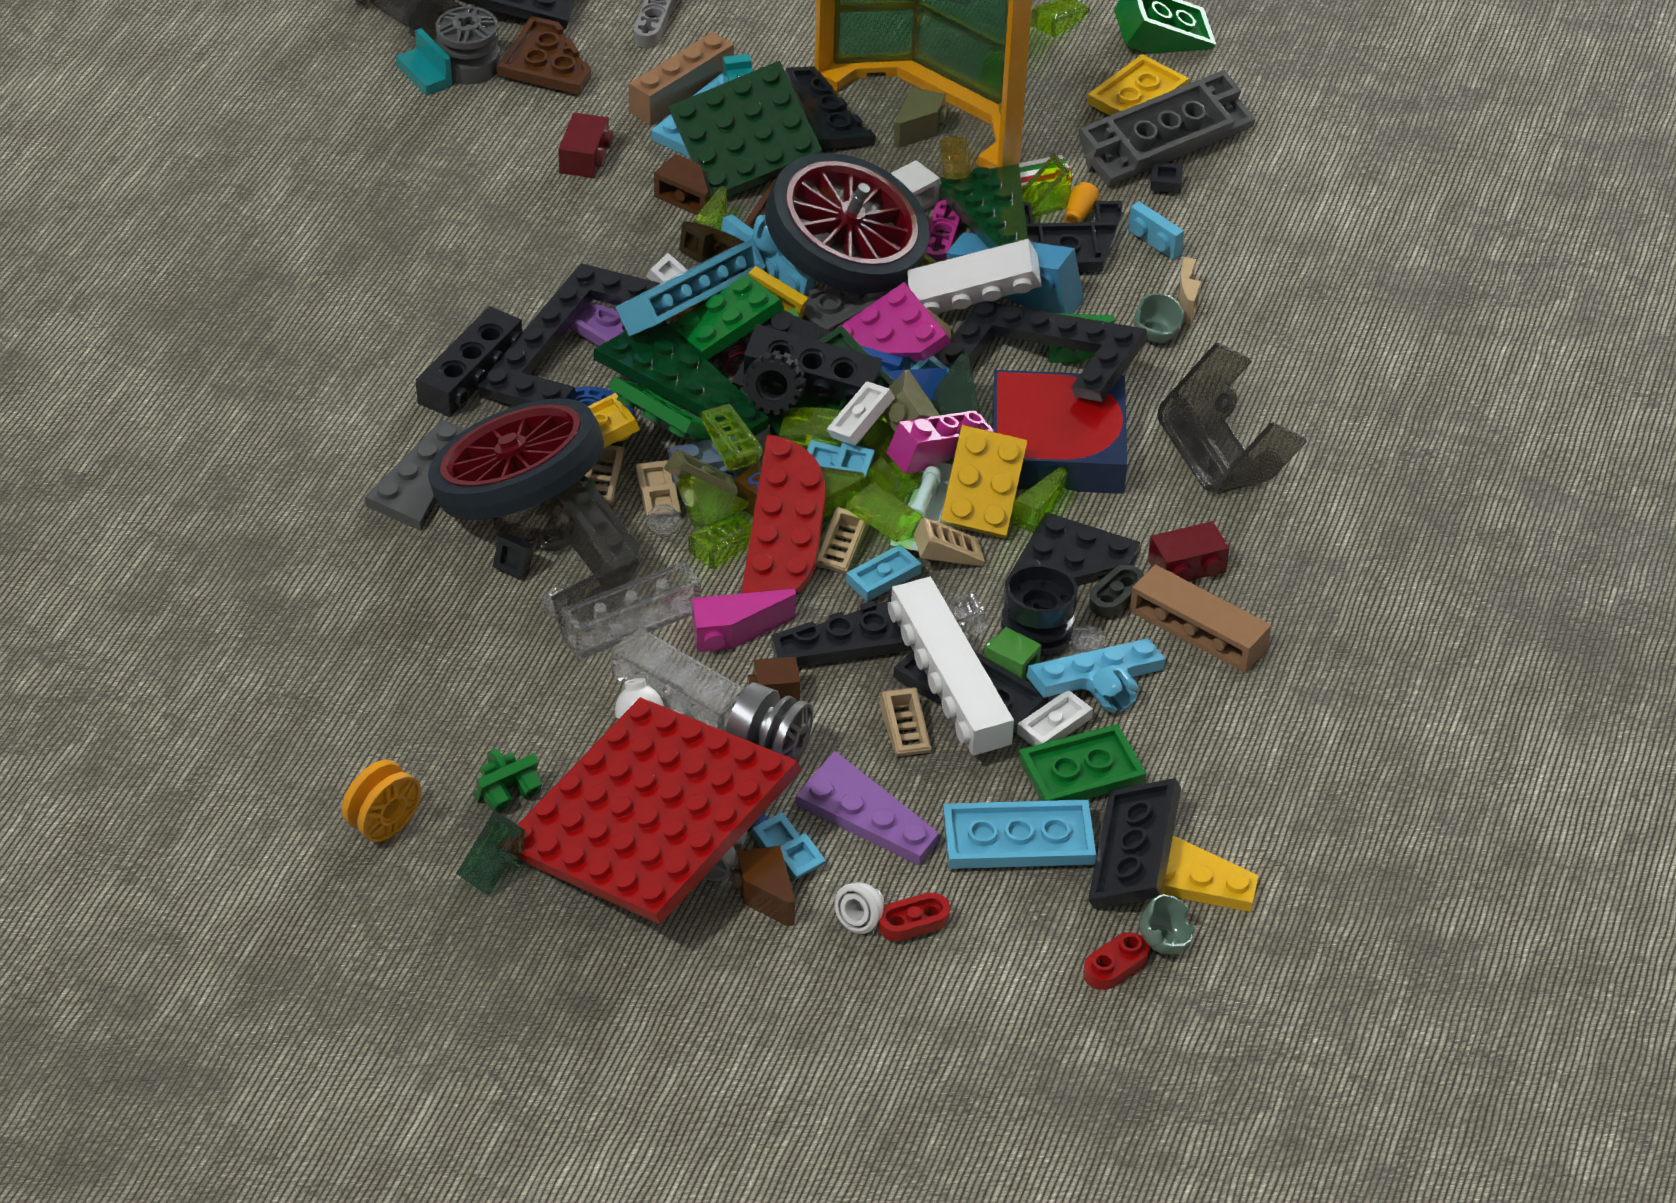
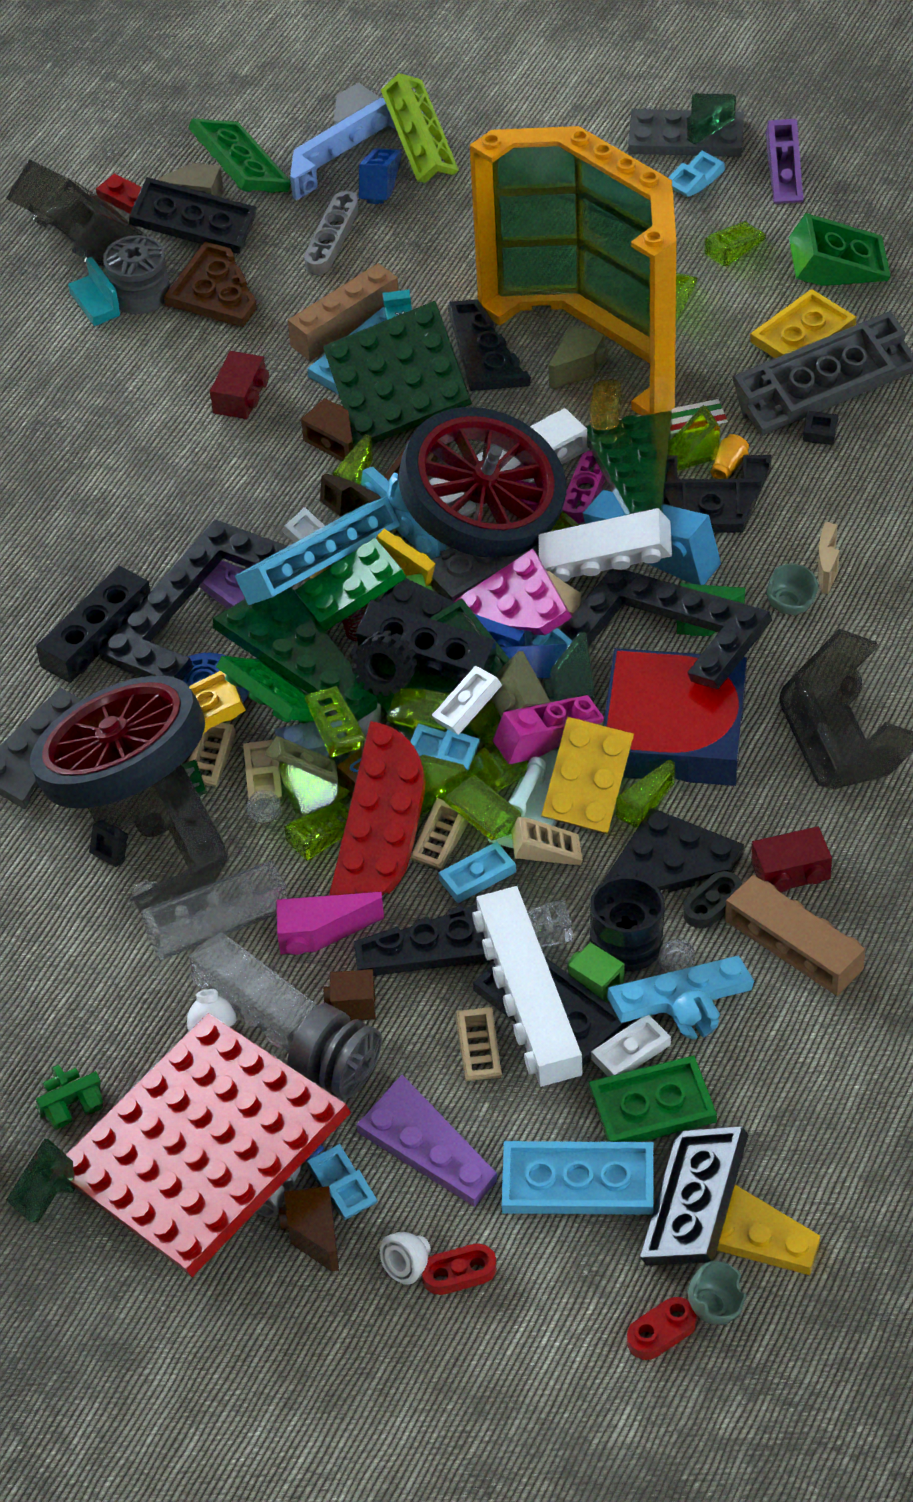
camera: 10 degrees right, 5 degrees up
(1156, 230) = (802, 488): medium azure plate -> none

